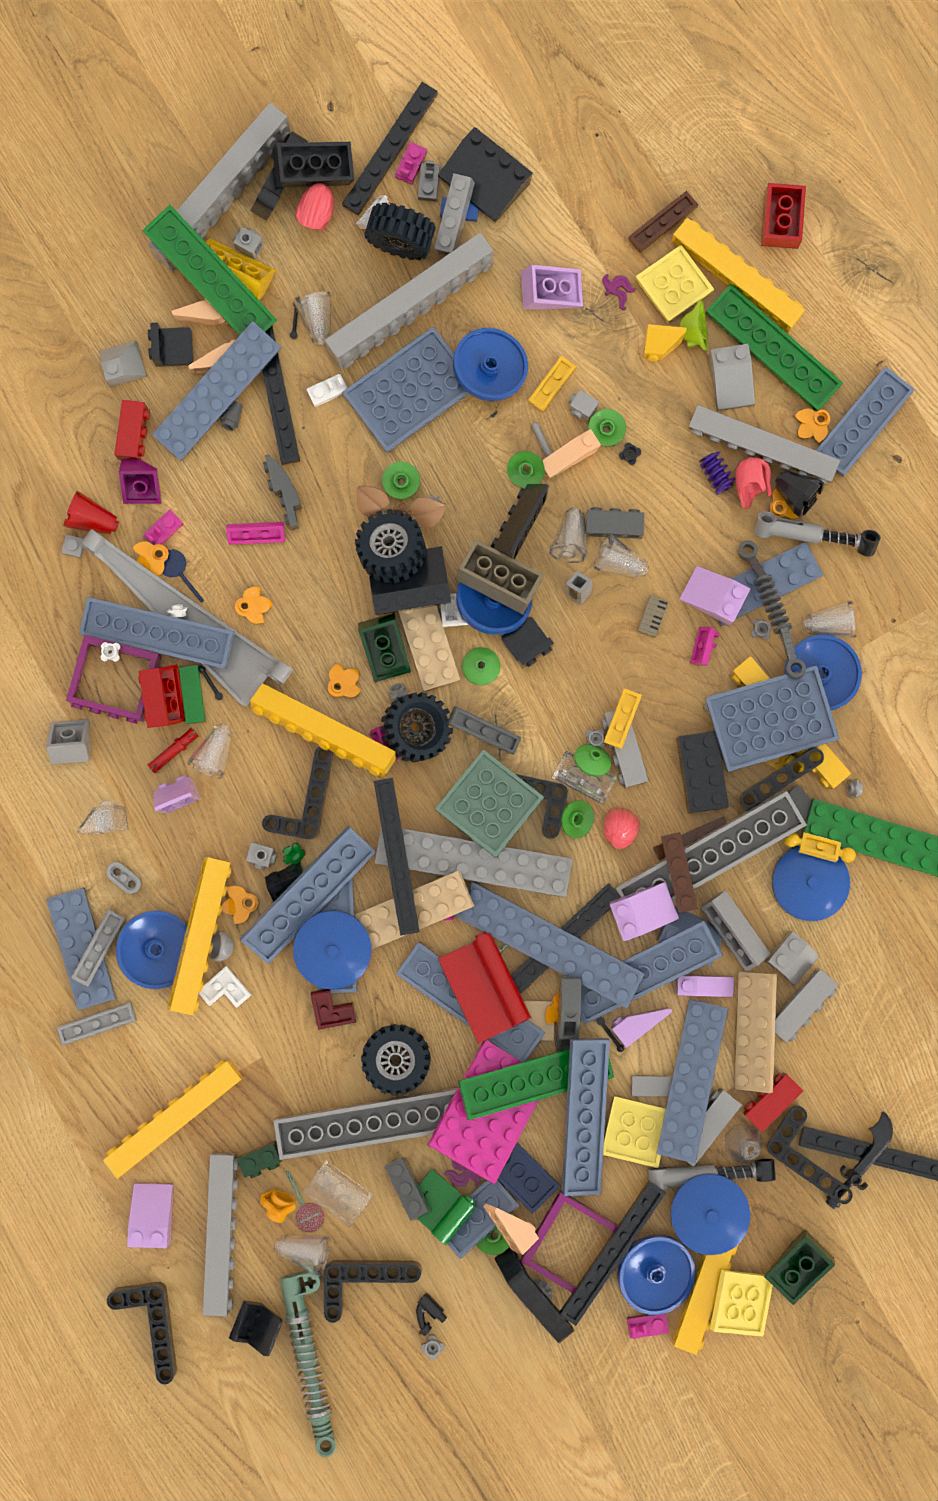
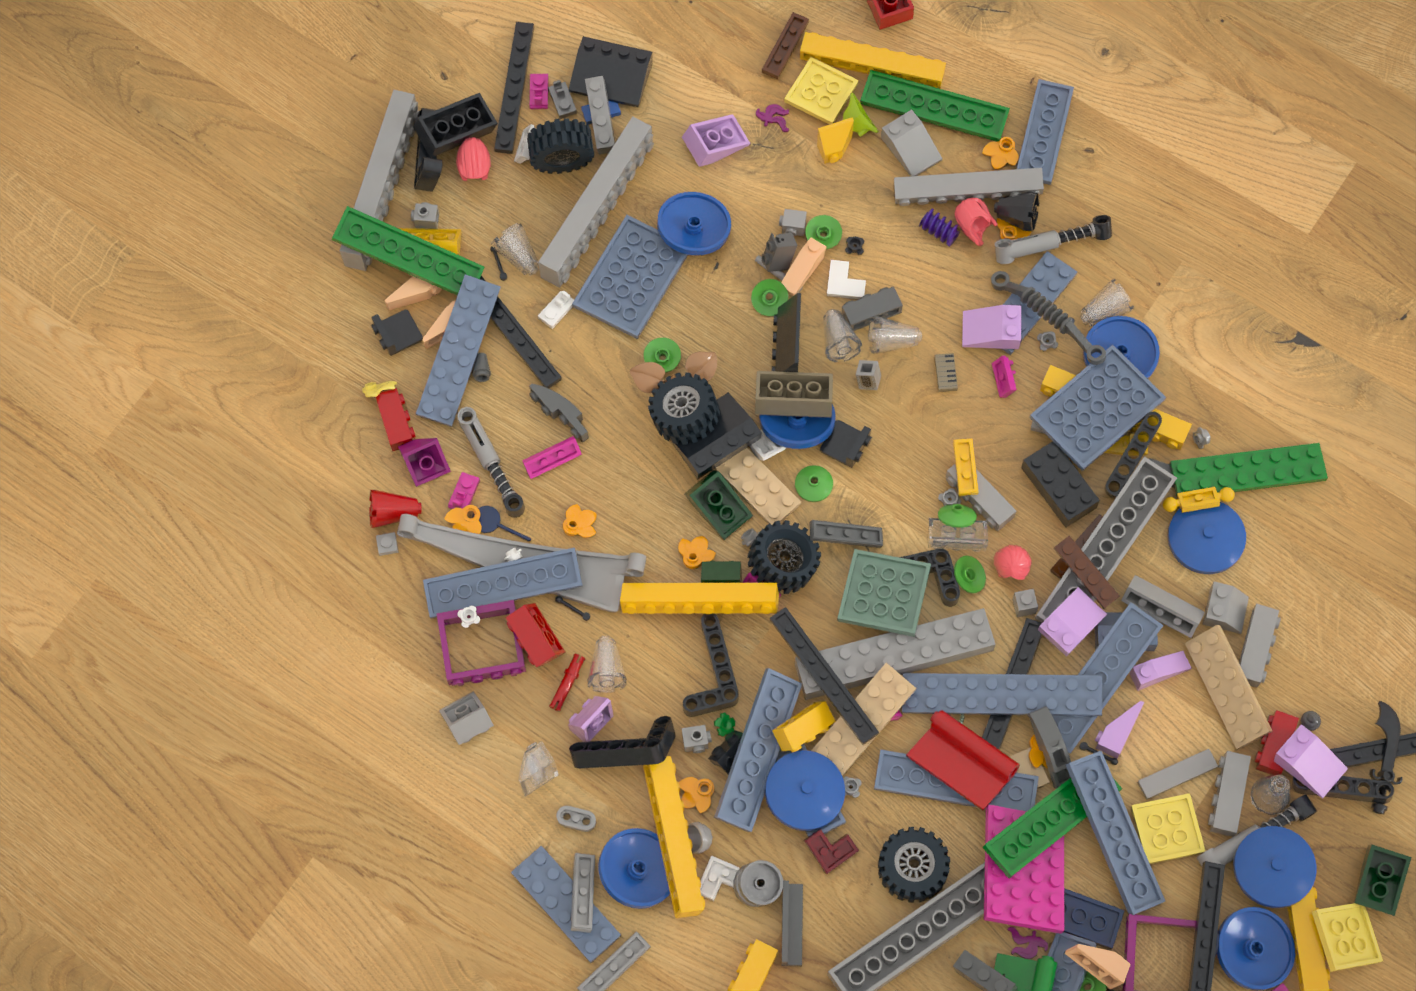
camera: 25 degrees left, 15 degrees down
(122, 364) = (358, 367): light grey slope -> none
(124, 393) = (372, 389): none -> light yellow plate
(192, 694) = (561, 625): green tile -> none
(193, 844) = (626, 751): none -> black beam
(199, 508) = (489, 460): none -> piece
(251, 1024) = (758, 895): none -> flat silver wheel
(266, 1059) = (792, 924): none -> dark grey fence
(354, 715) = (721, 572): none -> dark green brick
(358, 892) = (804, 726): none -> yellow brick
(382, 961) = (854, 792): none -> light grey plate
(551, 384) = (755, 218): yellow tile -> none
(554, 430) = (779, 252): none -> dark grey hinge
(597, 486) = (841, 286): none -> white tile
(613, 869) = (1025, 603): none -> light grey brick
(692, 1081) = (1195, 757): sand blue plate -> none
(791, 1138) = (1310, 761): none -> lavender slope
(814, 1095) = (1311, 720): none -> dark grey plate

